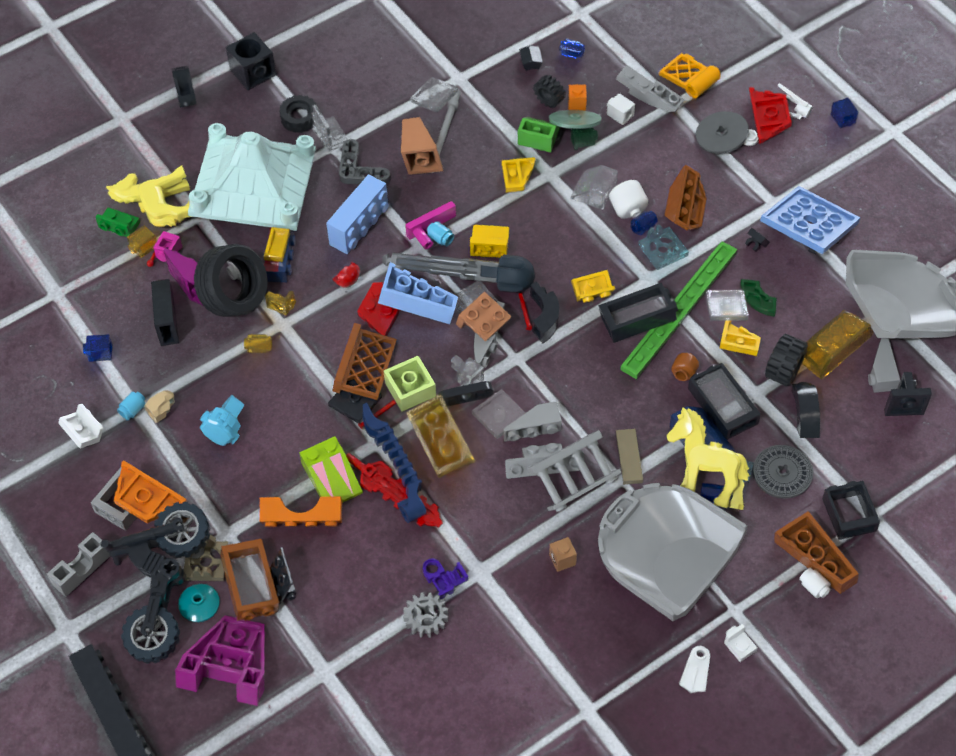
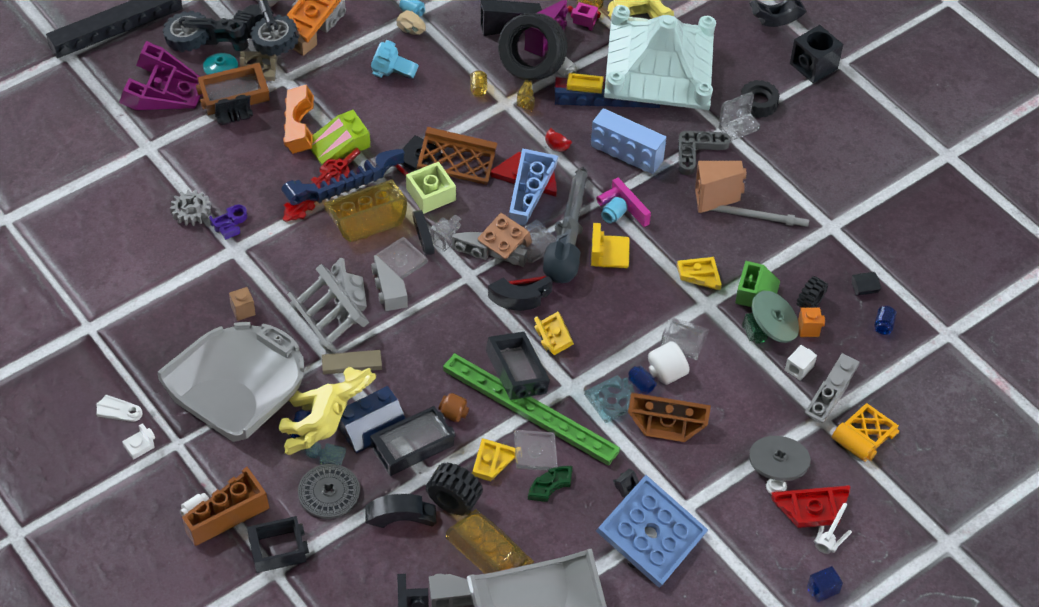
camera: 85 degrees right, 5 degrees down
(434, 94) = (799, 202): clear plate -> none

